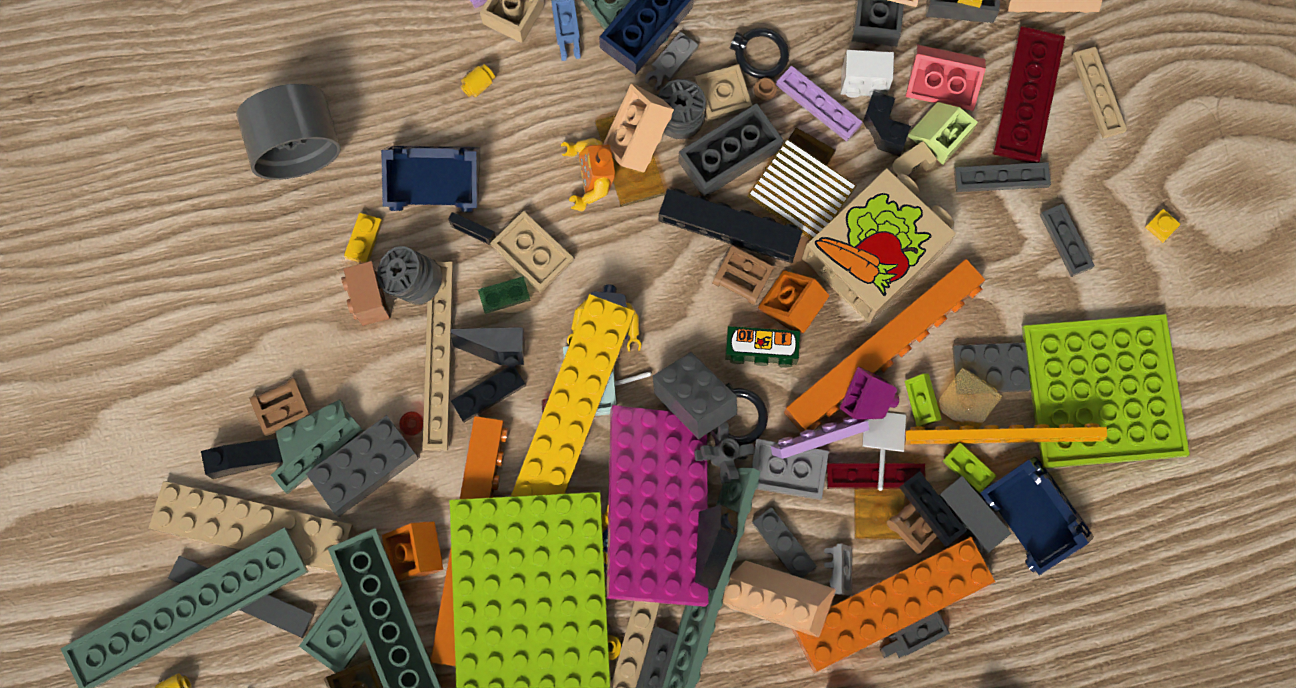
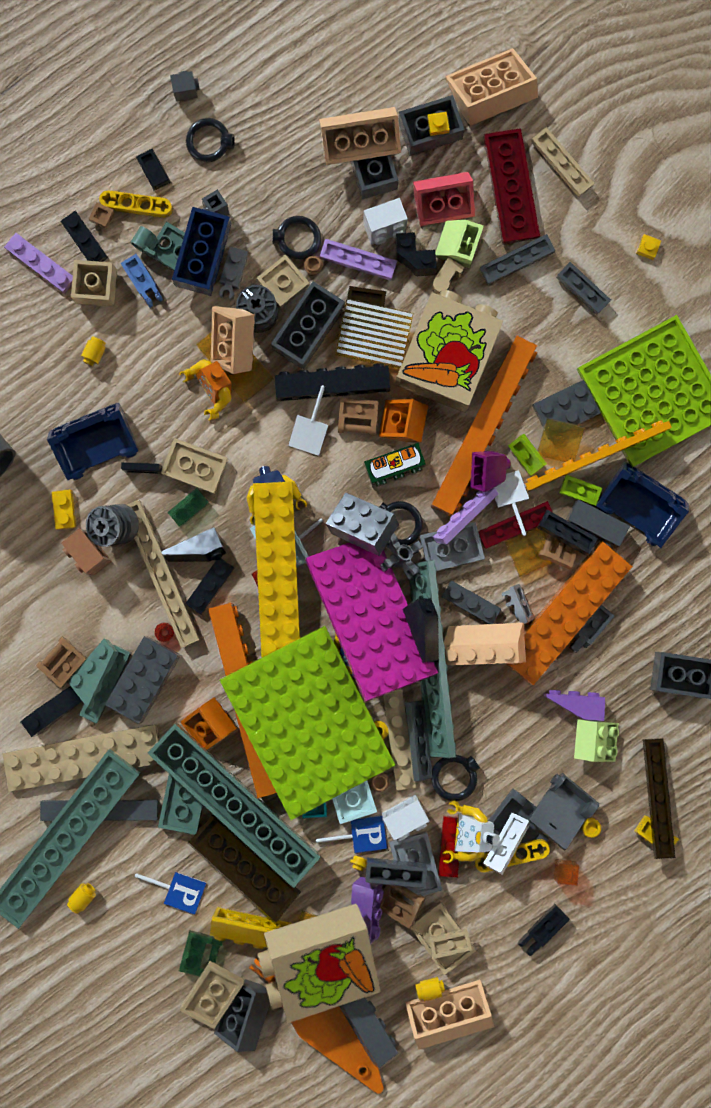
camera: 25 degrees left, 10 degrees up
(678, 270) = (308, 433): none -> white piece

